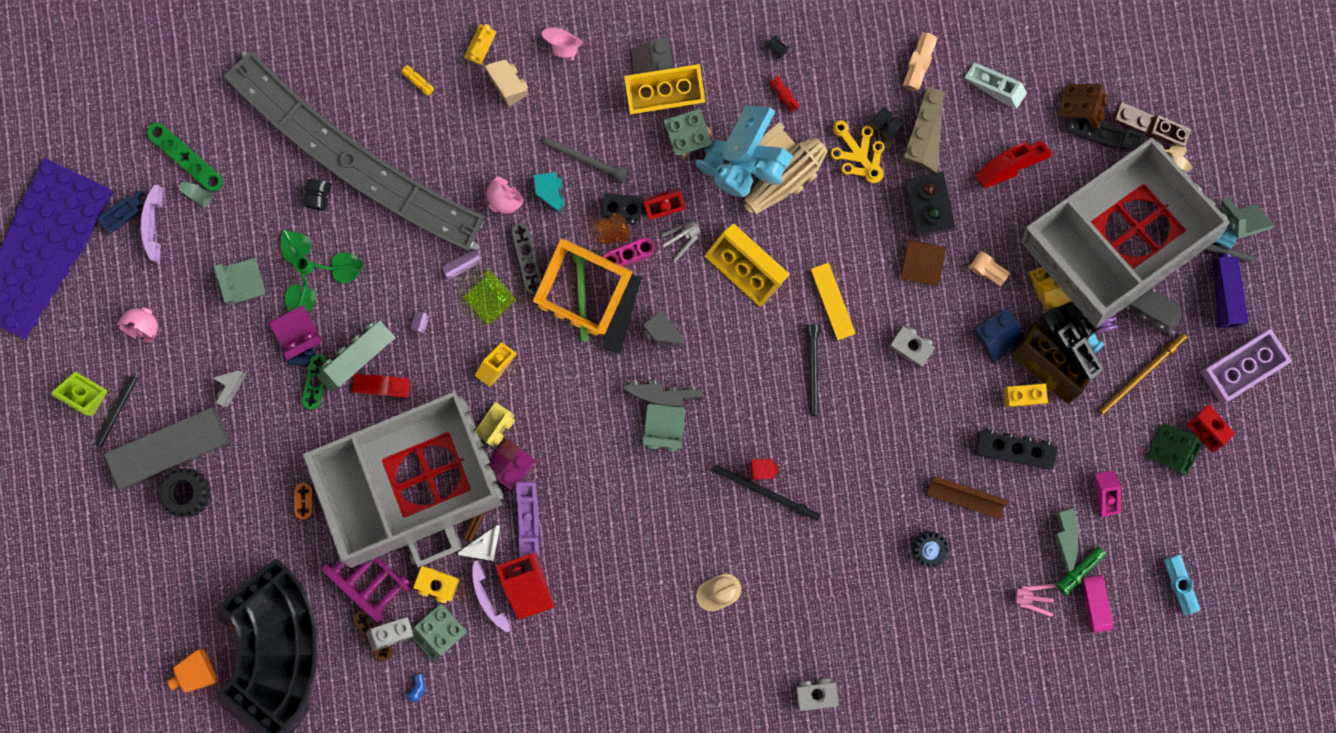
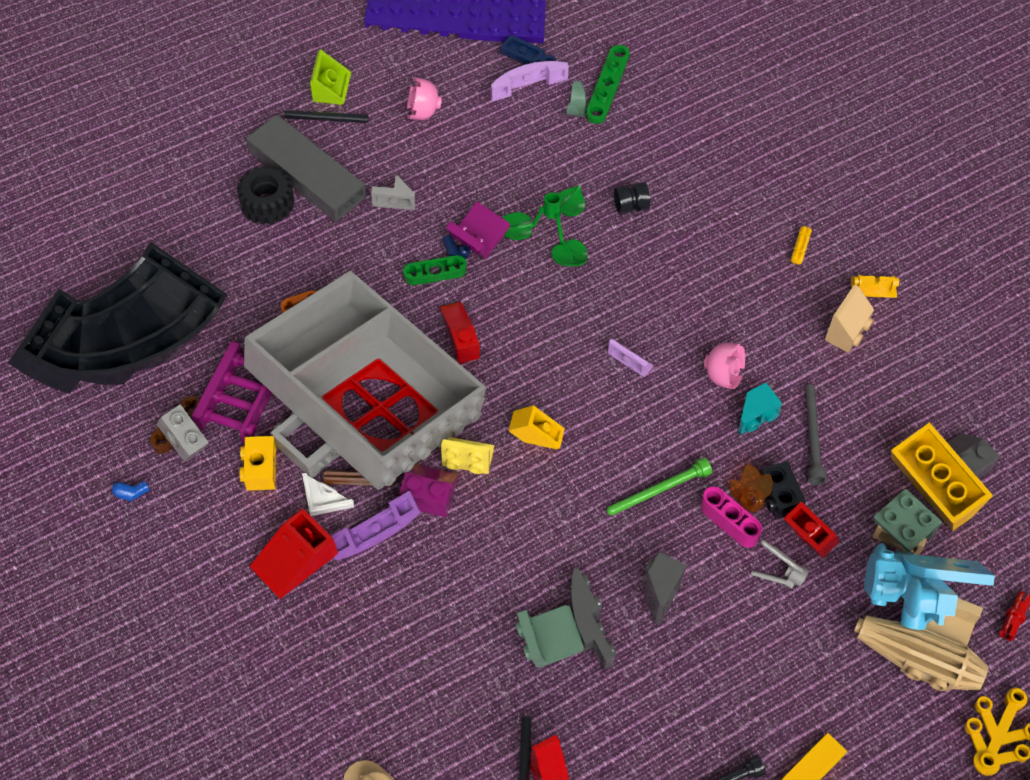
camera: 65 degrees right, 25 degrees down
(193, 673) = (75, 271): orange torso -> none
(240, 281) = (506, 166): sand green bracket -> none
(350, 160) = (681, 222): dark grey piece -> none
(356, 356) = (480, 288): wedge -> none
(419, 322) = (546, 342): lavender slope -> none
(437, 633) = (203, 485): sand green bracket -> none
(478, 575) = (285, 502): lavender slope -> none
(490, 298) = (608, 396): clear neon green bracket -> none
(525, 259) = (670, 418): dark grey beam -> none
(562, 42) = (924, 359): bright pink piece -> none
(562, 313) = (668, 443): light orange window -> none
(621, 319) = (660, 535): black slope -> none
(746, 265) = (791, 654): yellow slope -> none

